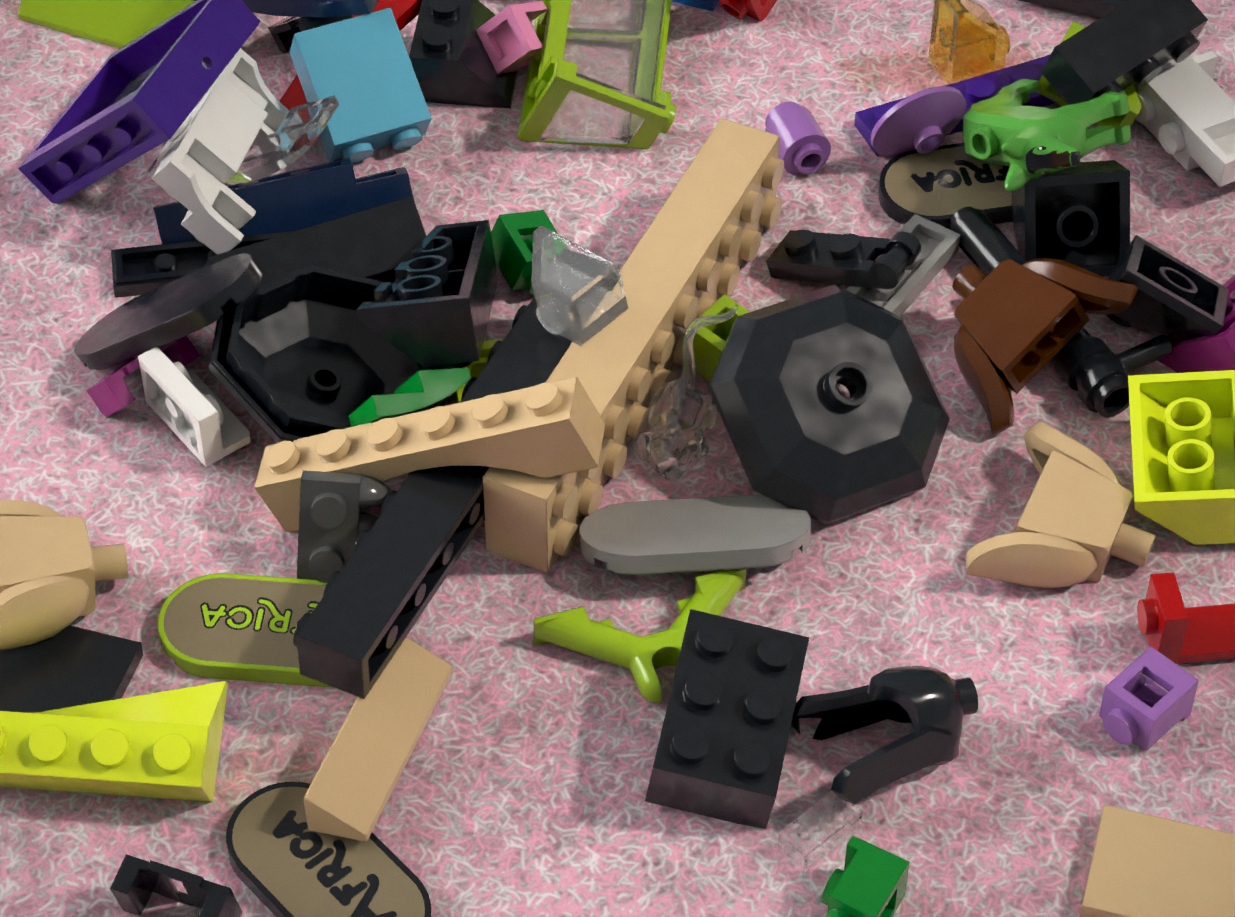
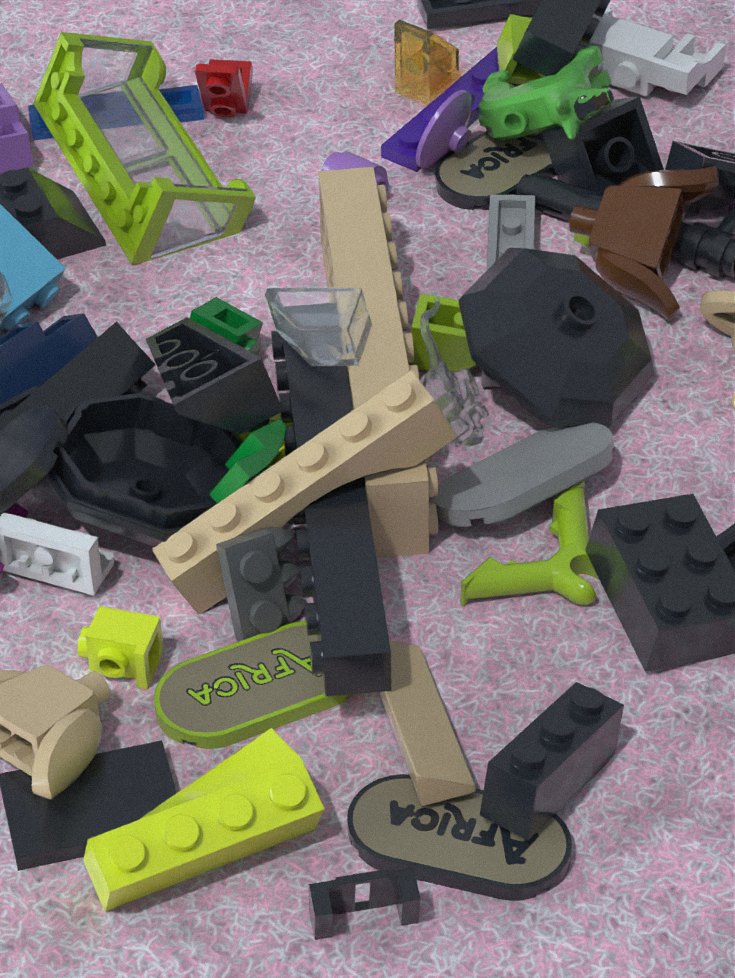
camera: 30 degrees left, 5 degrees down
(180, 531) = (122, 644): none -> neon yellow brick
(455, 847) = (551, 760): none -> black brick
(510, 36) = (81, 186): bright pink panel -> none
(844, 258) = (468, 243): black plate -> none

